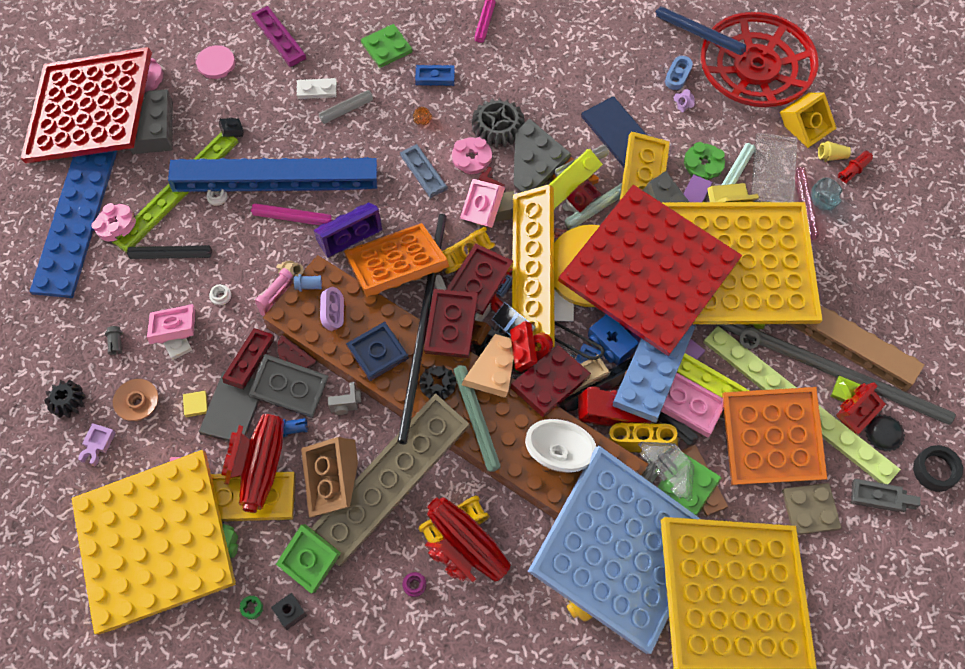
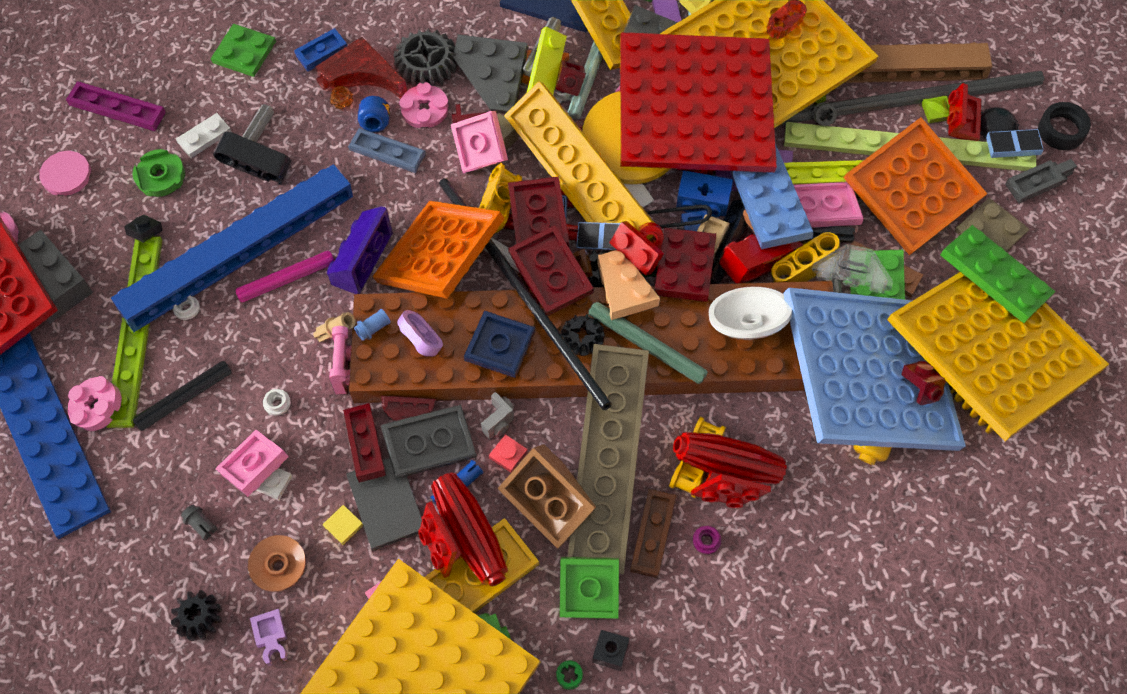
camera: 35 degrees left, 0 degrees up
(273, 105) = (159, 185): none -> bright green plate
(330, 122) = (252, 157): none -> black beam
(333, 428) = (508, 453): none -> coral plate
(381, 553) = (653, 533): none -> reddish brown plate
(432, 140) = (373, 114): none -> blue head
(448, 100) = (358, 66): none -> clear red arch
(654, 584) = (927, 380): none -> dark red bracket
(768, 246) = (783, 15): none -> clear red beam
(782, 544) = (997, 273): none -> bright green plate
(882, 455) = (1014, 143): none -> black tile

